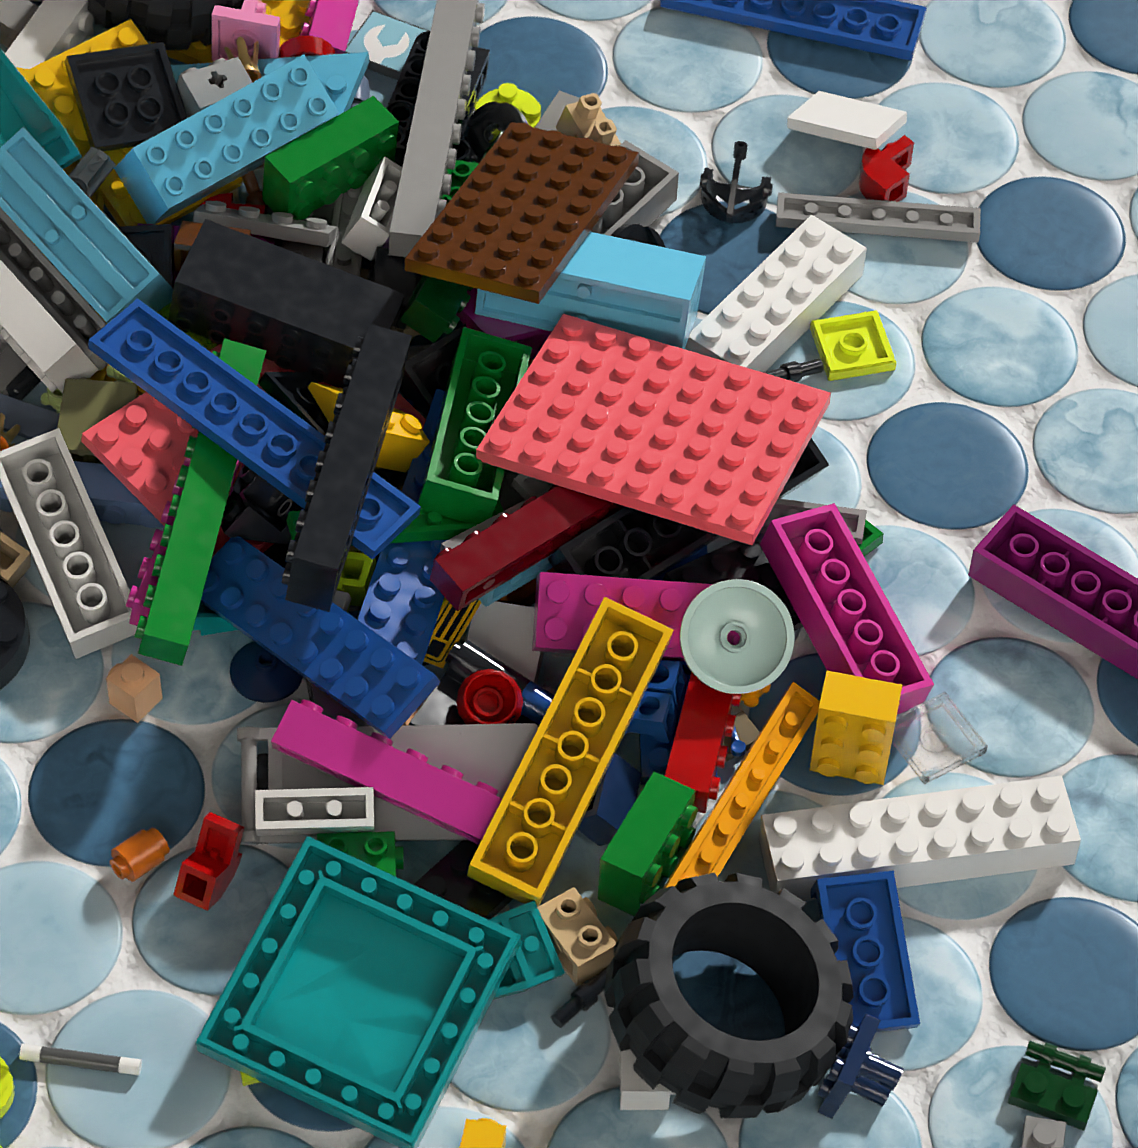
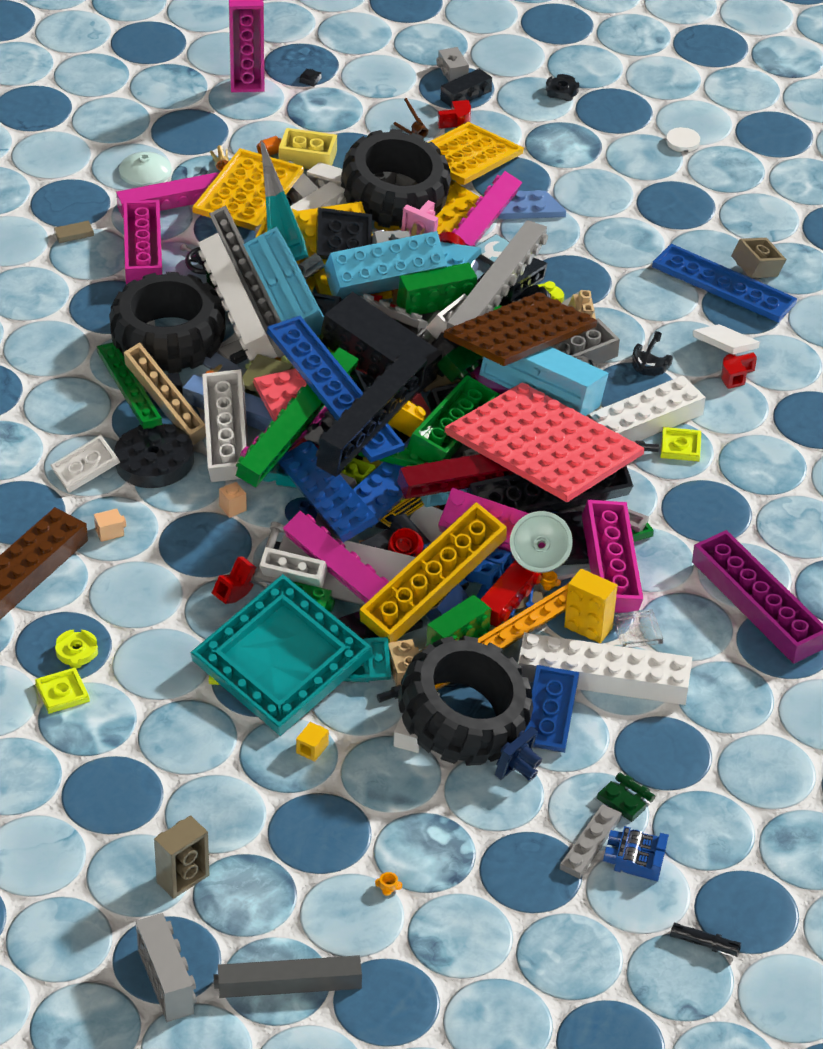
camera: 20 degrees right, 10 degrees down
(80, 1059) = (134, 650): dark grey bar -> none
(139, 854) = (202, 570): orange brick -> none
(881, 217) = (726, 389): light grey plate -> none

